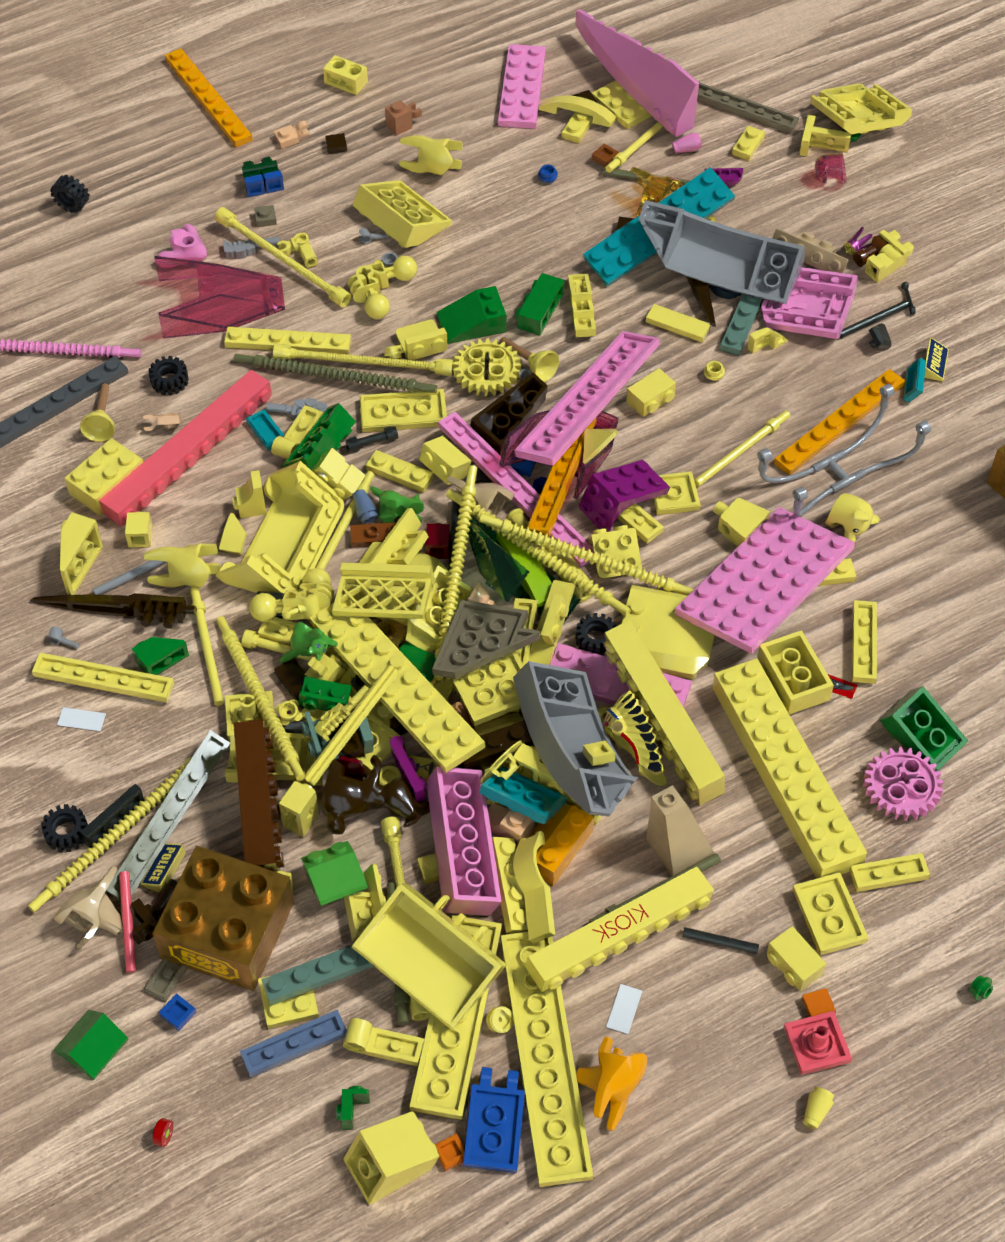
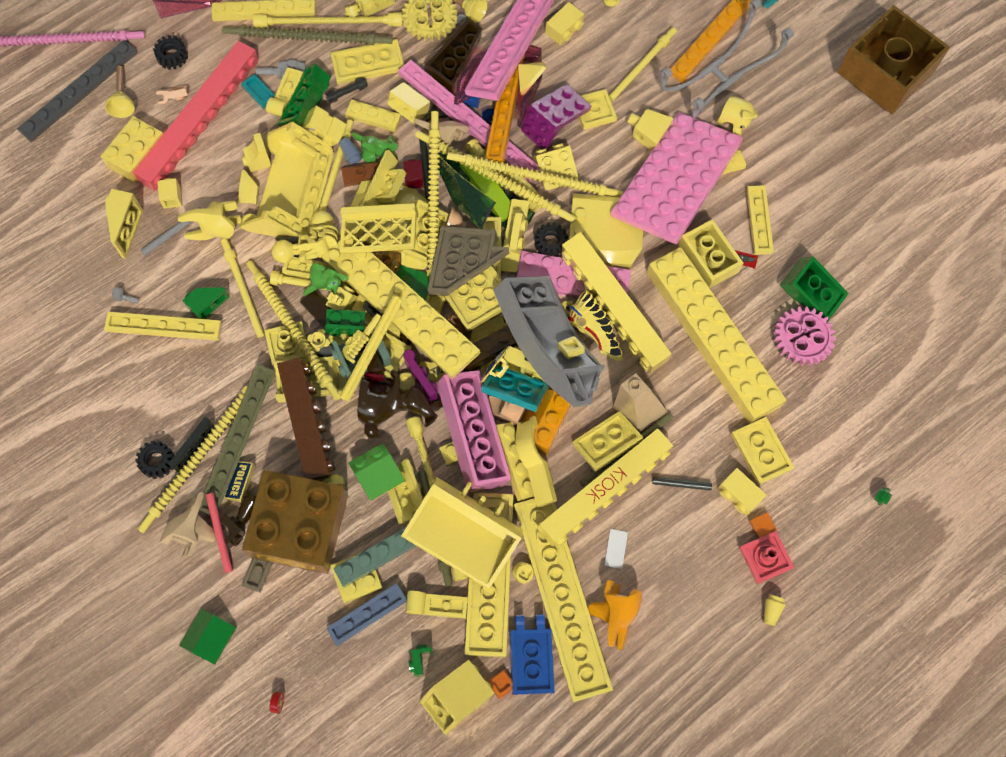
camera: 10 degrees left, 15 degrees up
(81, 719) = (152, 363): white sticker -> none
(136, 605) = (185, 261): dark brown piece -> none
(177, 1012) = (271, 601): blue plate -> none
(299, 808) = (340, 420): light yellow brick -> none
(631, 875) = (607, 441): none -> light yellow plate
(646, 526) = (573, 138): light yellow plate -> none
(889, 872) = (803, 411): light yellow plate -> none

